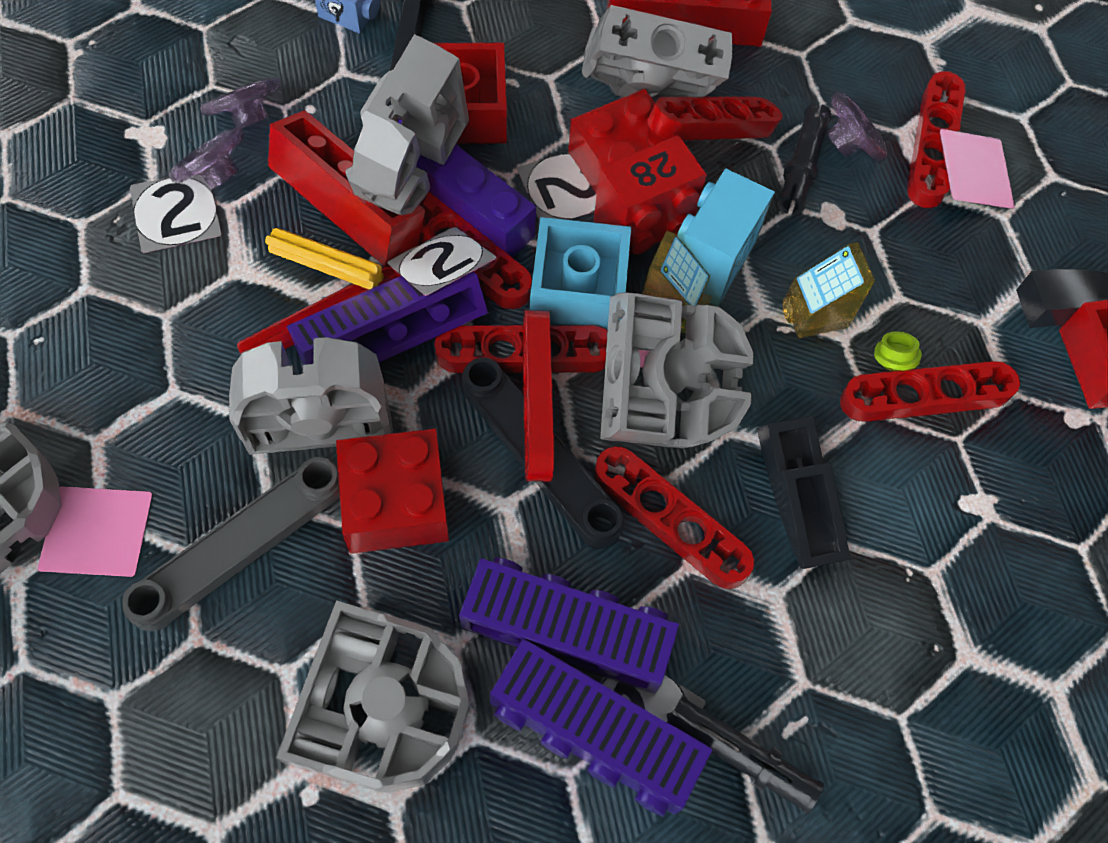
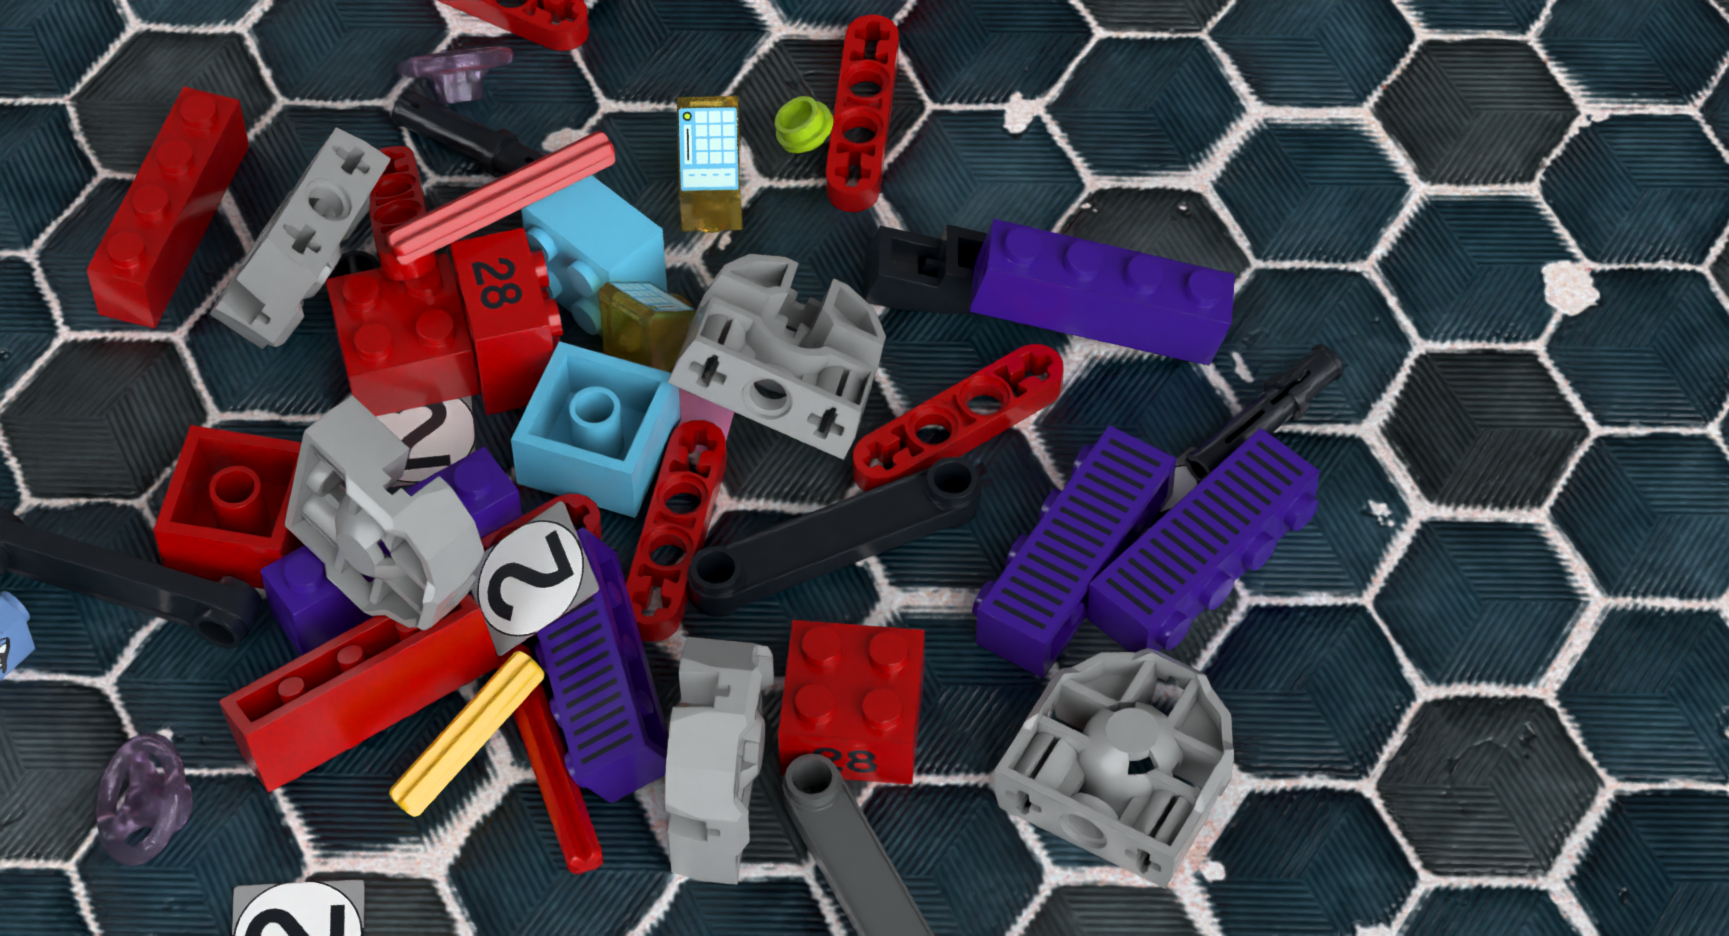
camera: 70 degrees left, 10 degrees down
(210, 160) = (249, 851): clear purple piece -> none
(537, 397) = (838, 517): red beam -> none
(722, 151) = (500, 197): none -> axle
(806, 594) = (1102, 292): none -> dark purple brick

